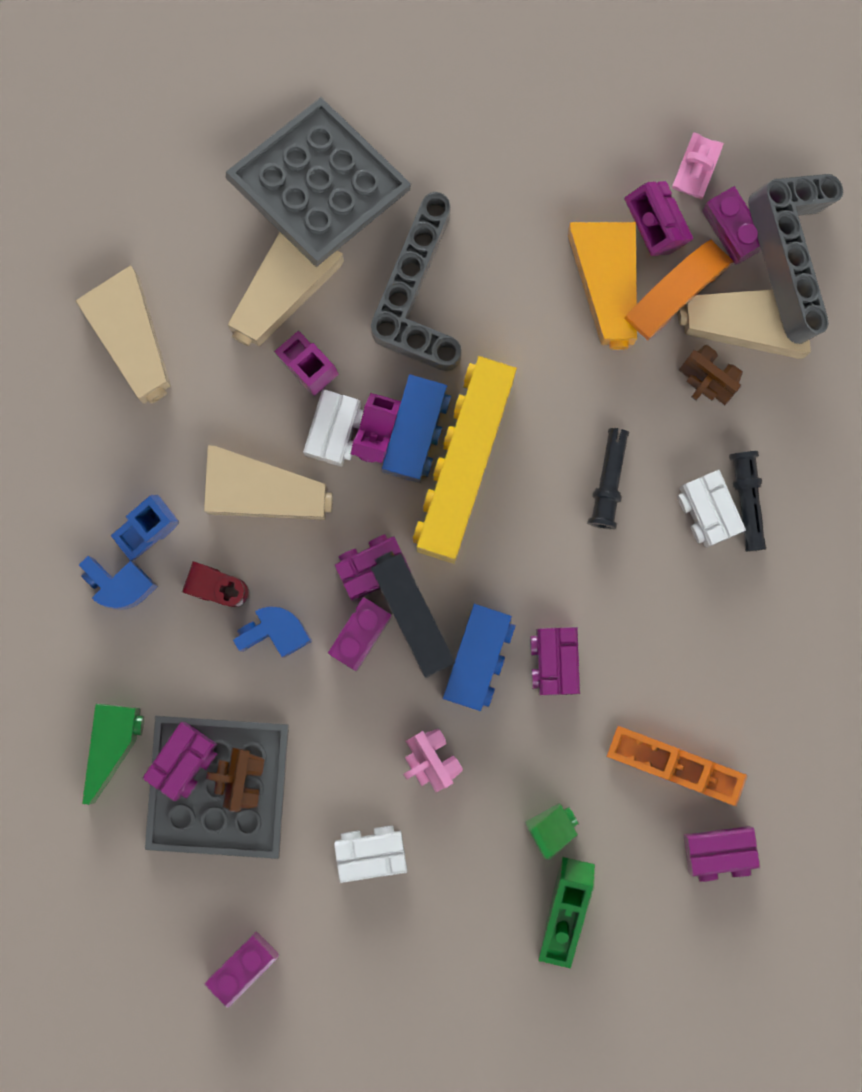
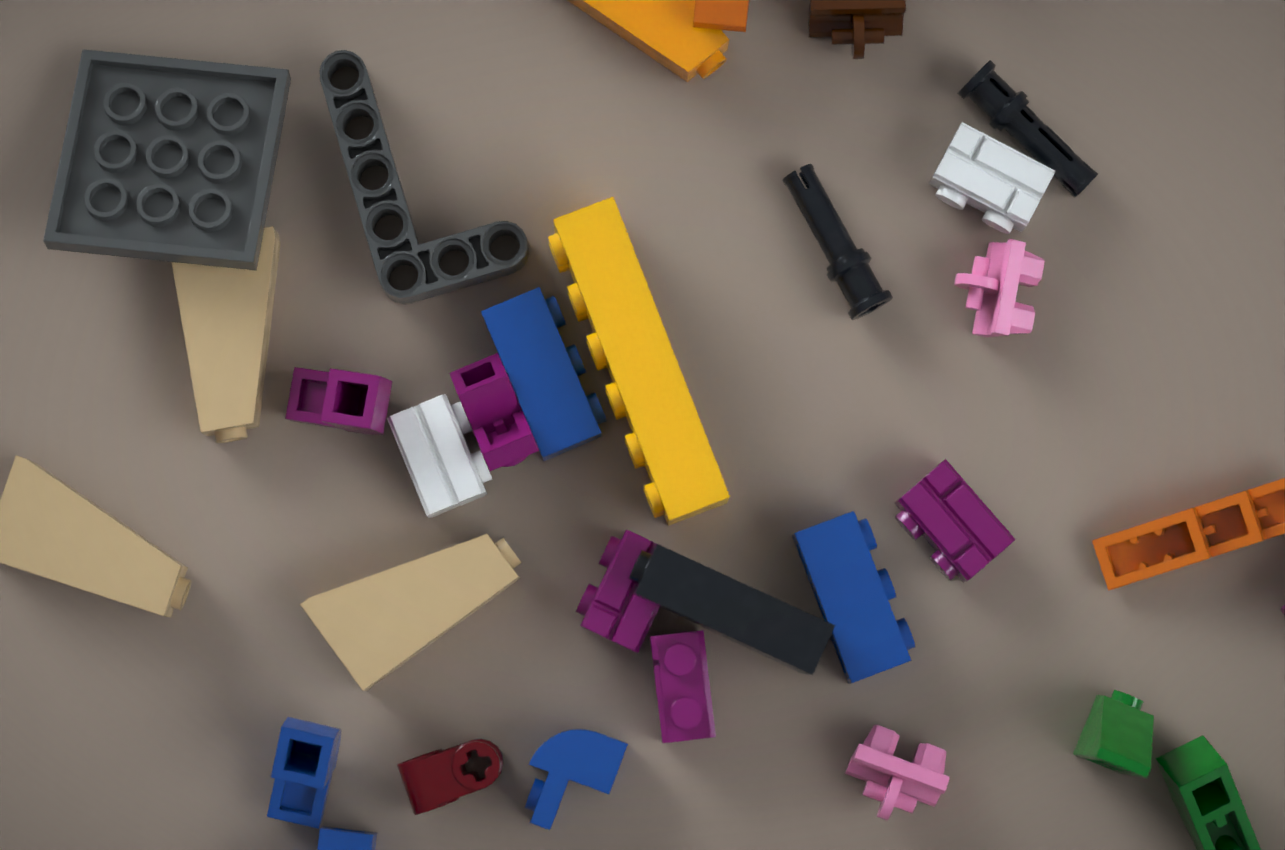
camera: 45 degrees left, 0 degrees up
(669, 563) = (995, 285): none -> bright pink hips

